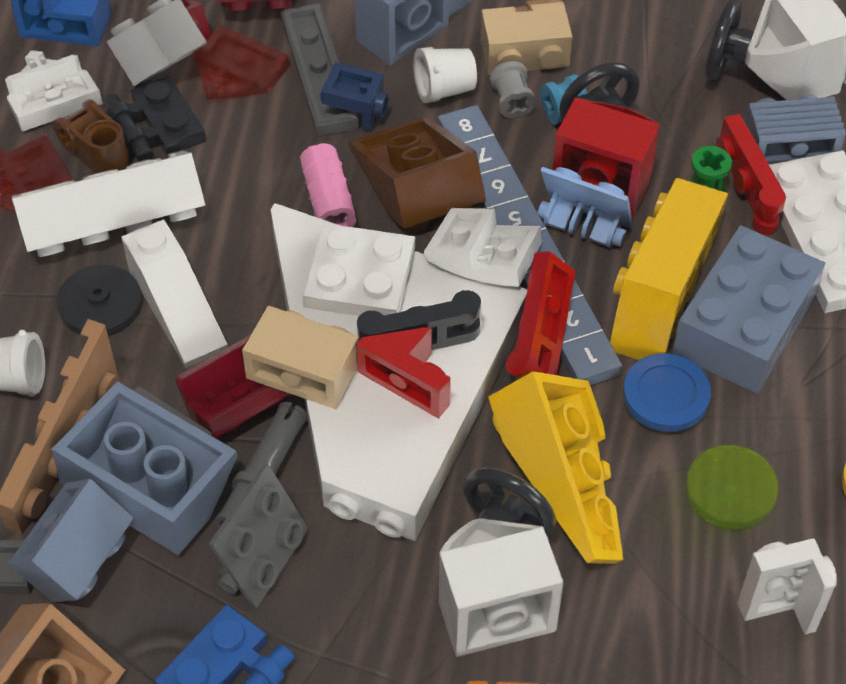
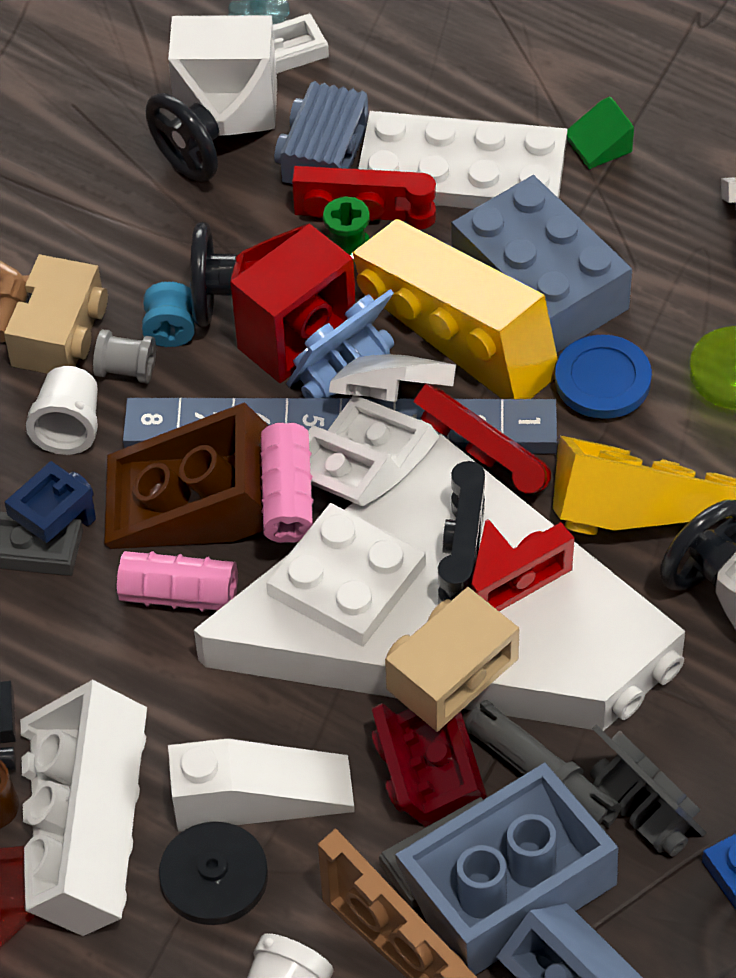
camera: 65 degrees left, 0 degrees up
(424, 204) = (286, 482): none -> bright pink axle
(571, 238) = (380, 375): none -> white slope

